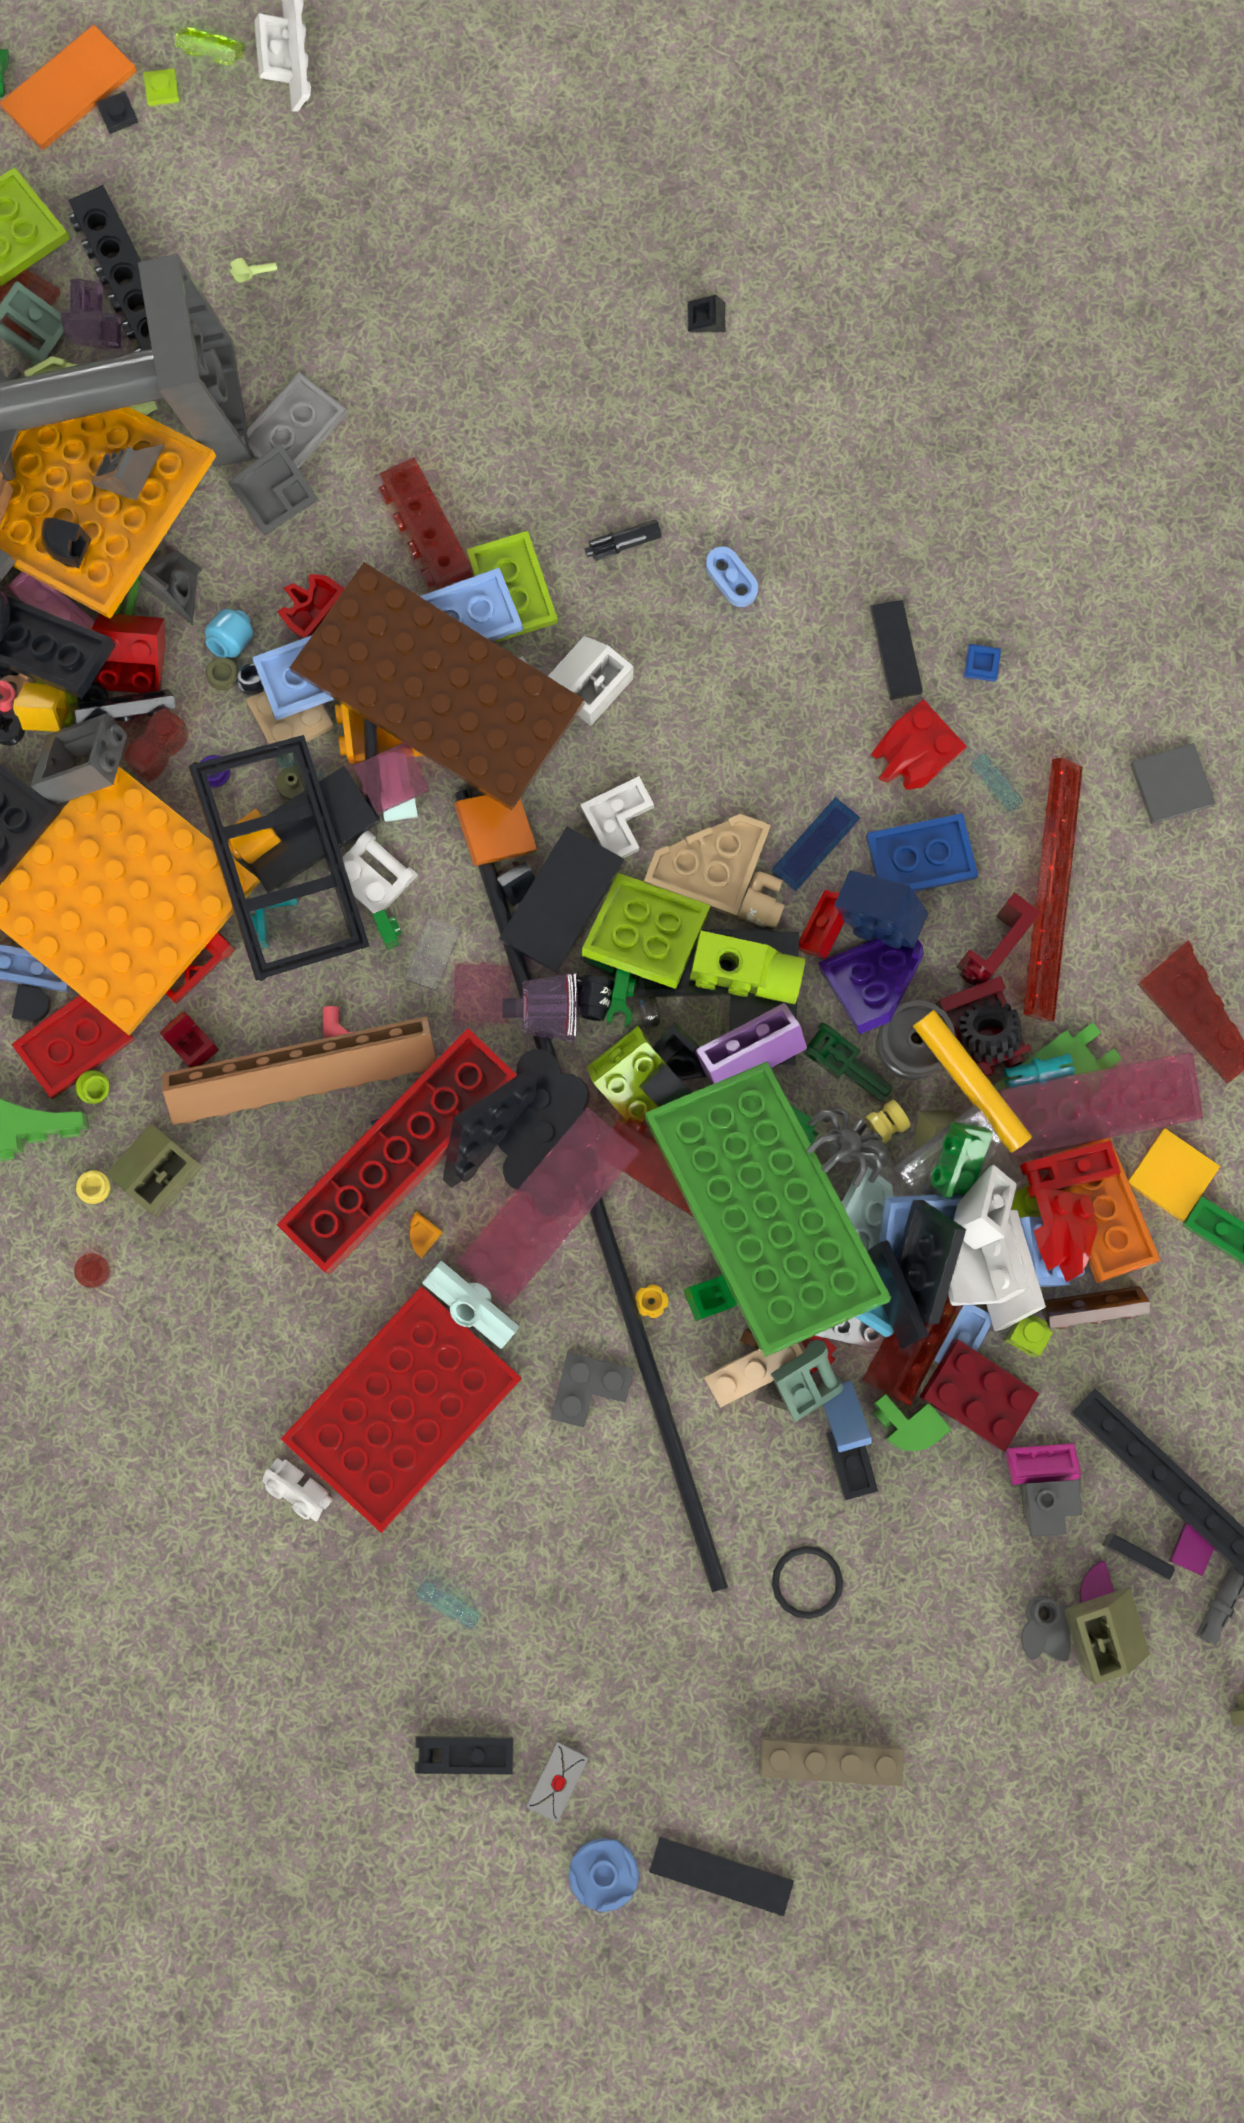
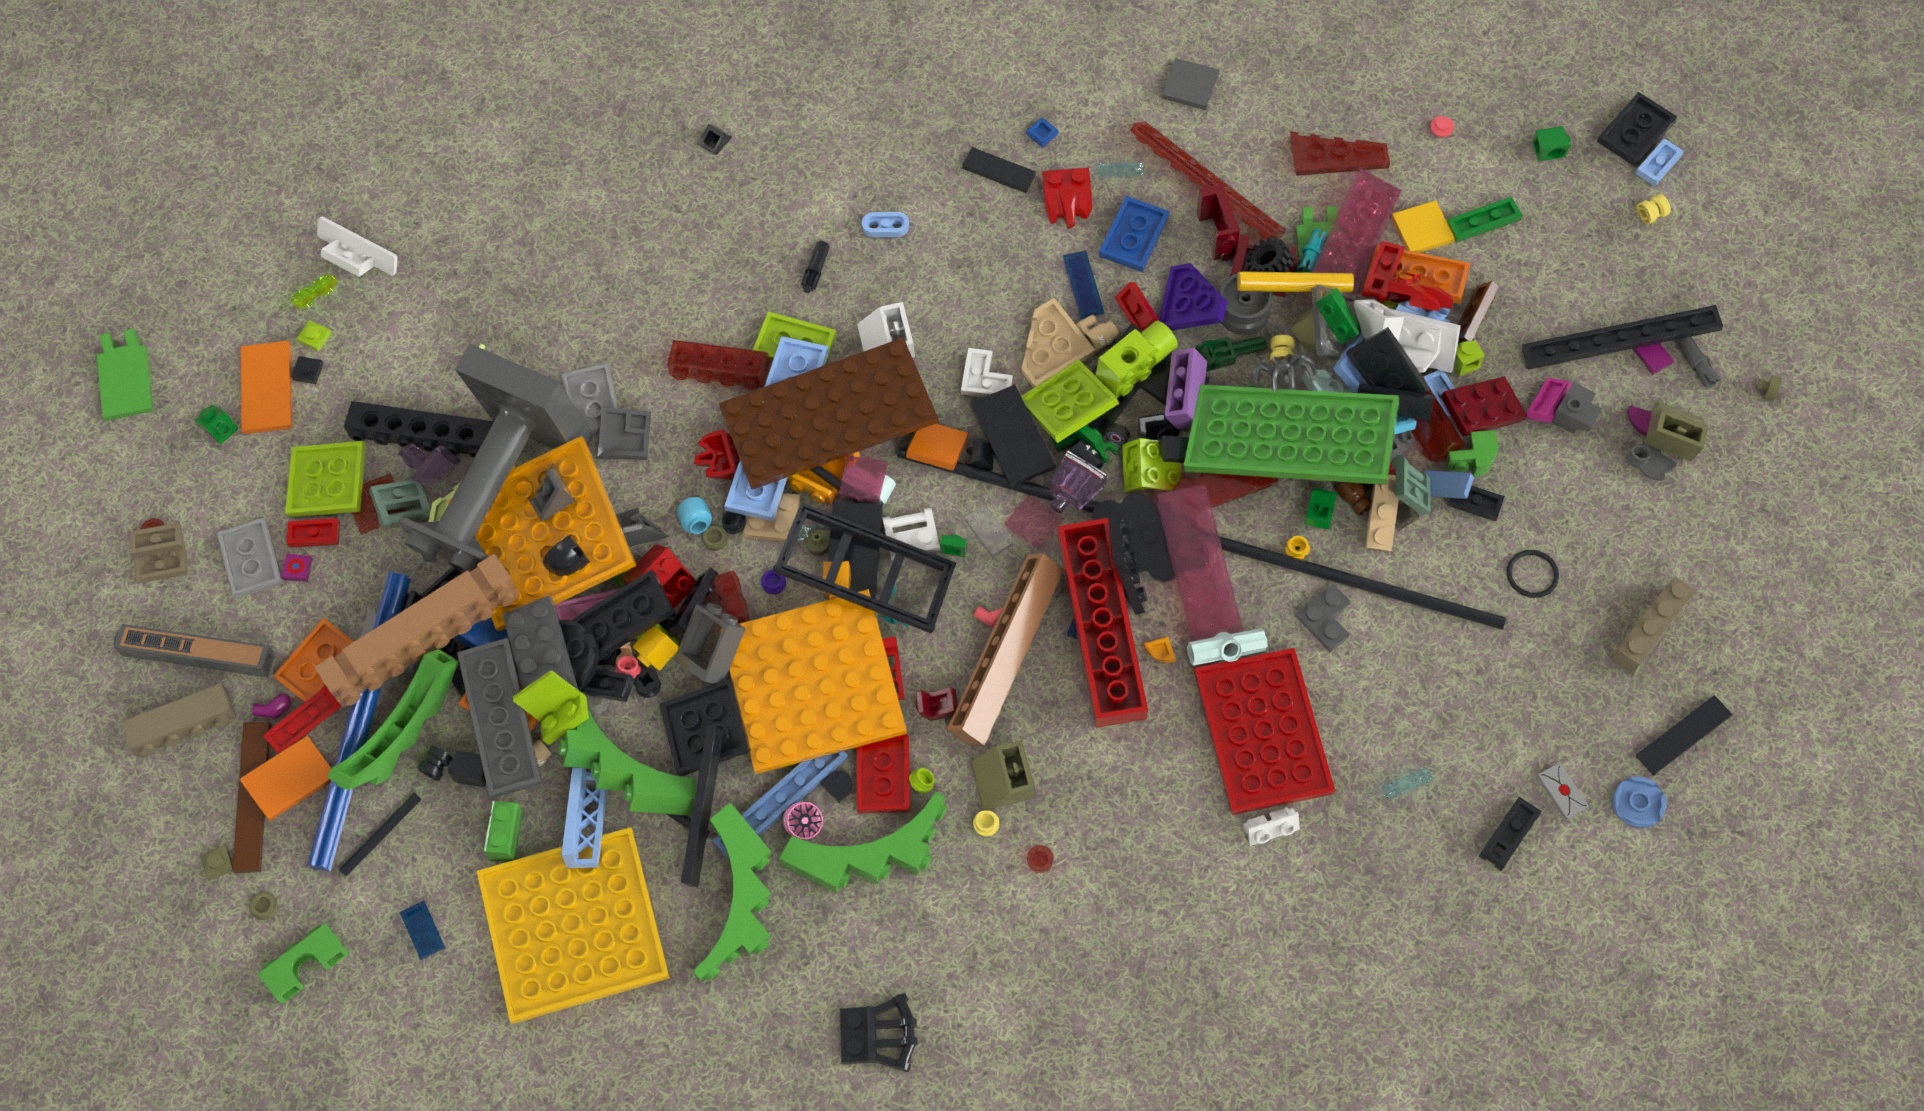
camera: 45 degrees left, 15 degrees down
(881, 910) = (1154, 267): dark blue brick -> none
(1138, 1556) = (1639, 385): black tile -> none

